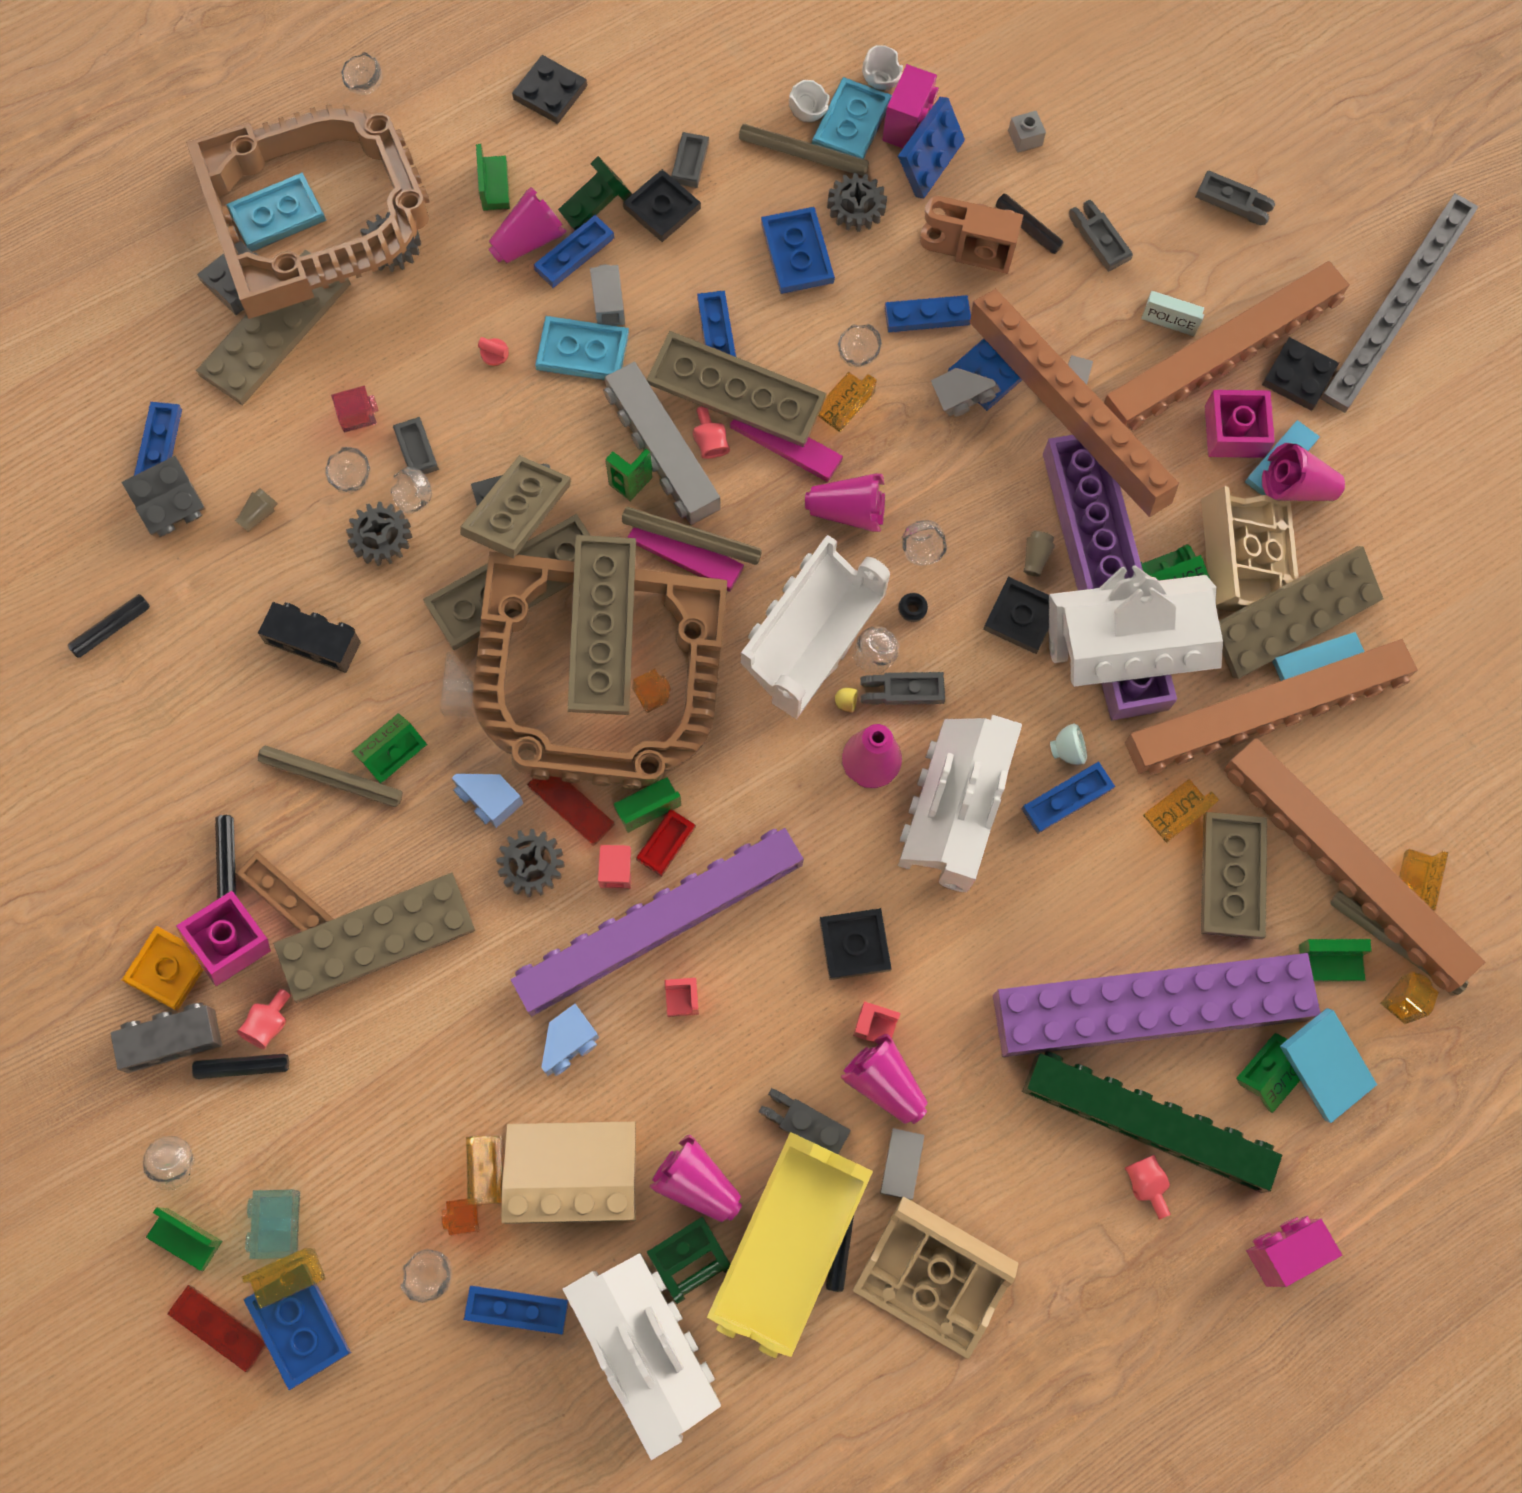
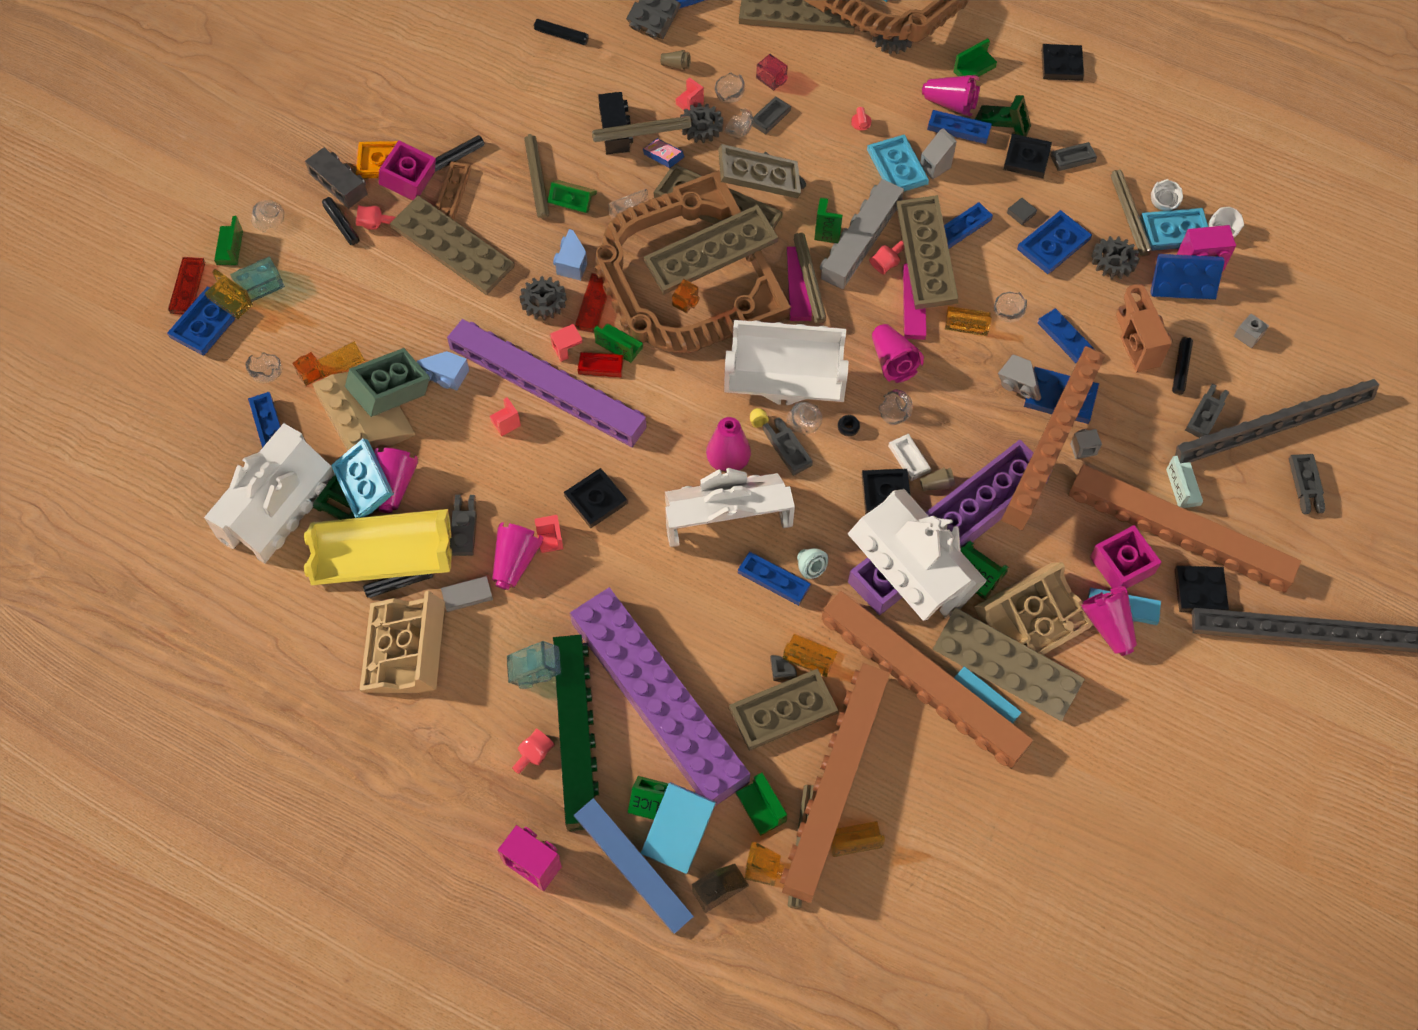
camera: 65 degrees right, 10 degrees down
(328, 524) = (692, 96): none -> coral panel
(353, 609) = (641, 129): none -> dark tan axle
(397, 603) = (663, 153): none -> tile
(556, 1122) = (387, 382): none -> sand green brick
(687, 1221) = (362, 479): none -> medium azure tile
(732, 257) = (1021, 211): none -> dark grey tile
(987, 565) = (909, 457): none -> white tile
(1052, 1129) = (533, 665): none -> clear light blue brick
(1148, 189) = (1277, 422): none -> flat silver plate
(1180, 850) = (781, 668): none -> dark grey tile
(1348, 1139) = (633, 866): none -> medium blue tile
(1410, 1057) = (718, 886): none -> clear smoke slope

